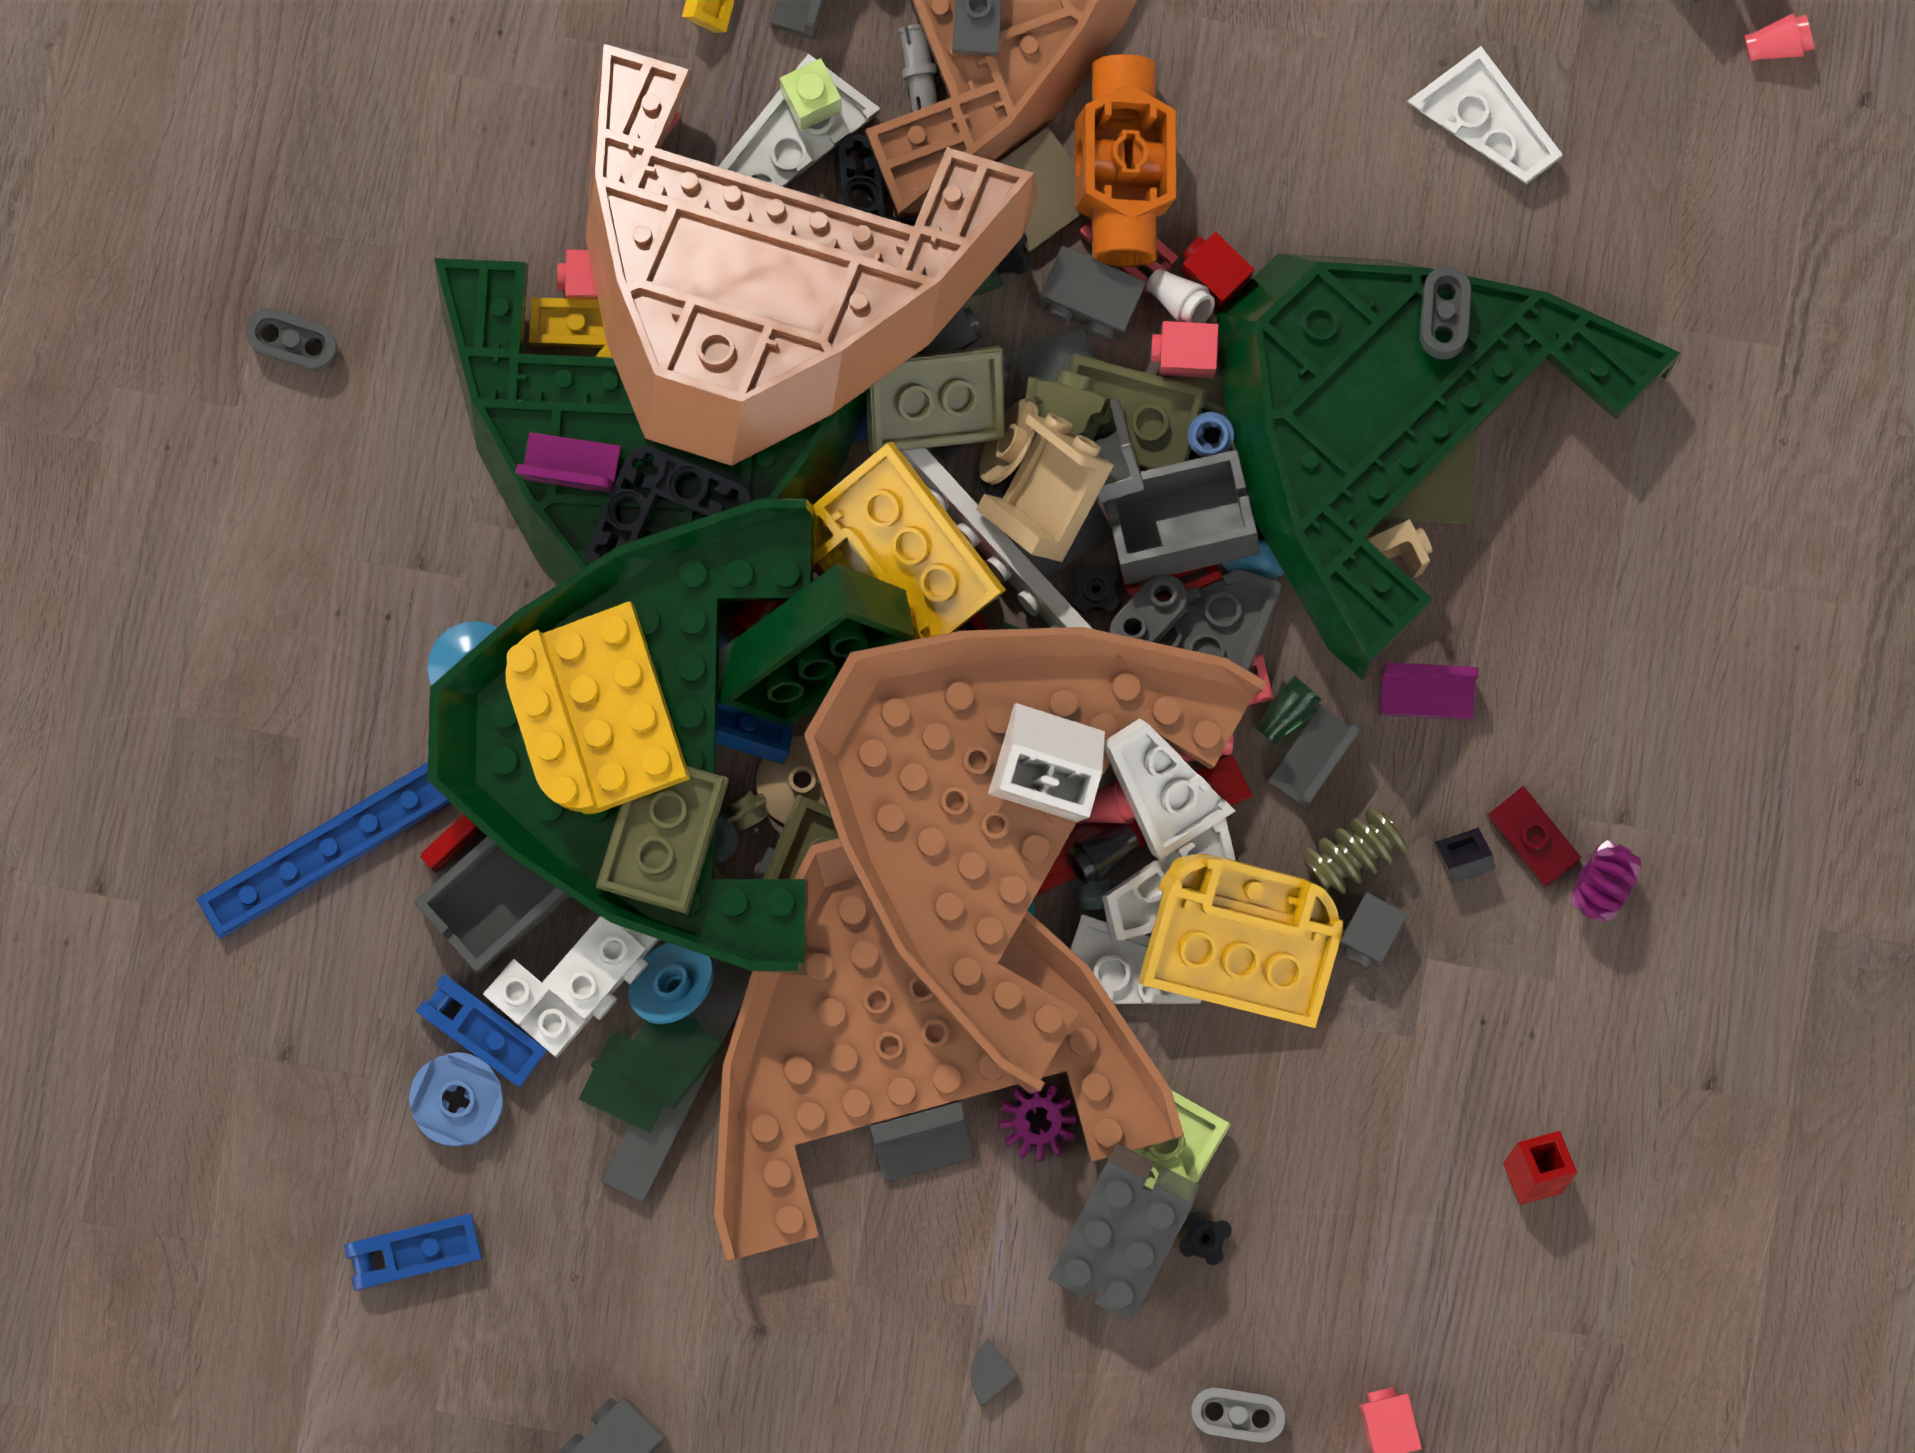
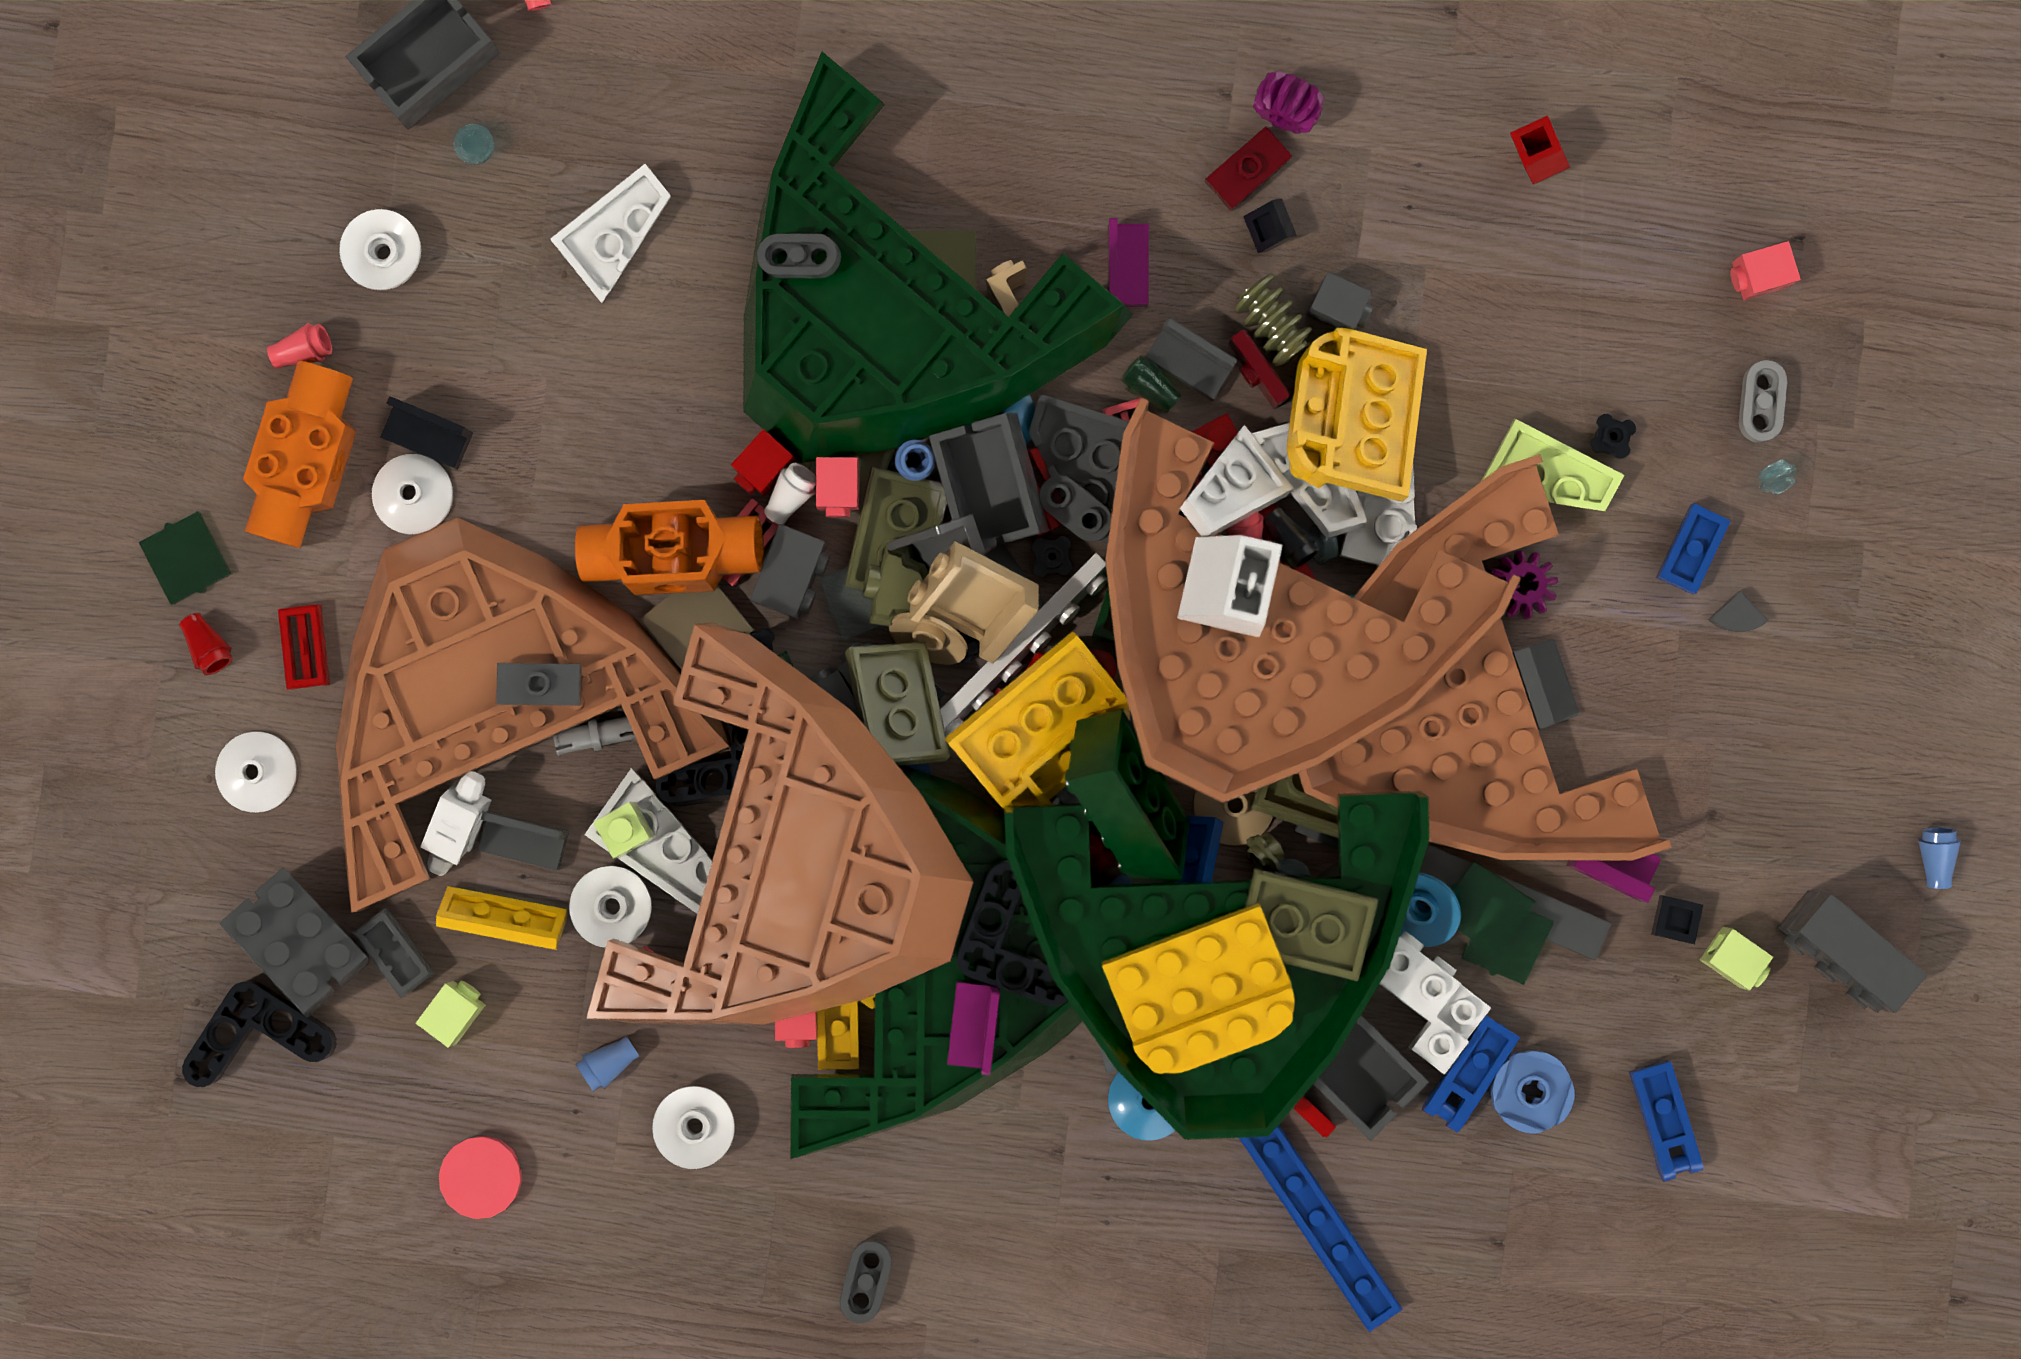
camera: 85 degrees left, 5 degrees up
(471, 136) = (674, 1136): none -> white dish
(552, 67) = (606, 1063): none -> medium blue cone
(592, 1344) = (1737, 959): none -> yellowish green brick
(642, 1278) = (1677, 919): none -> black plate
(695, 1224) = (1622, 875): none -> magenta panel
(732, 57) = (589, 905): none -> white dish
(1069, 1323) = (1693, 549): none -> blue plate
(1124, 1233) = (1623, 506): dark grey piece -> none
(1148, 1426) = (1777, 477): none -> clear light blue plate
(1298, 831) = (1257, 369): none -> dark red plate

